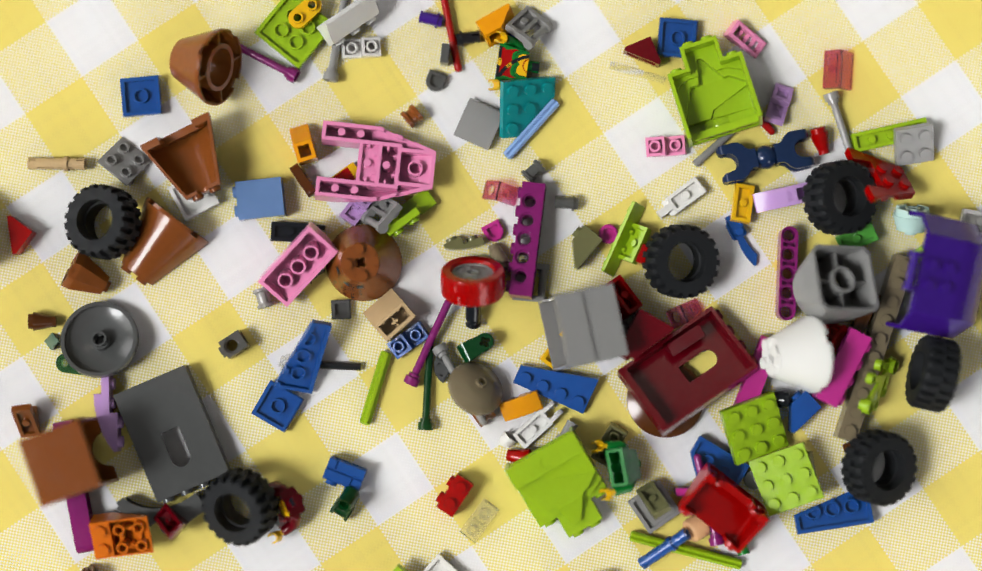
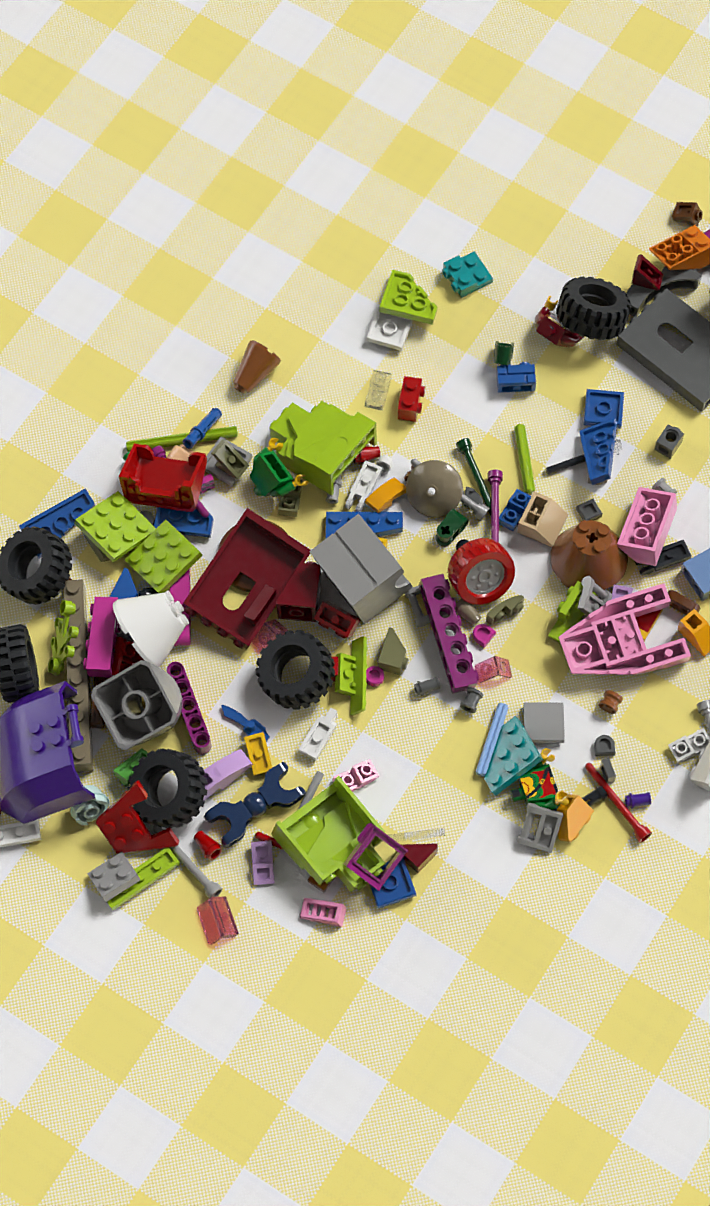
camera: 160 degrees right, 20 degrees down
(686, 72) = (364, 839): none -> magenta piece

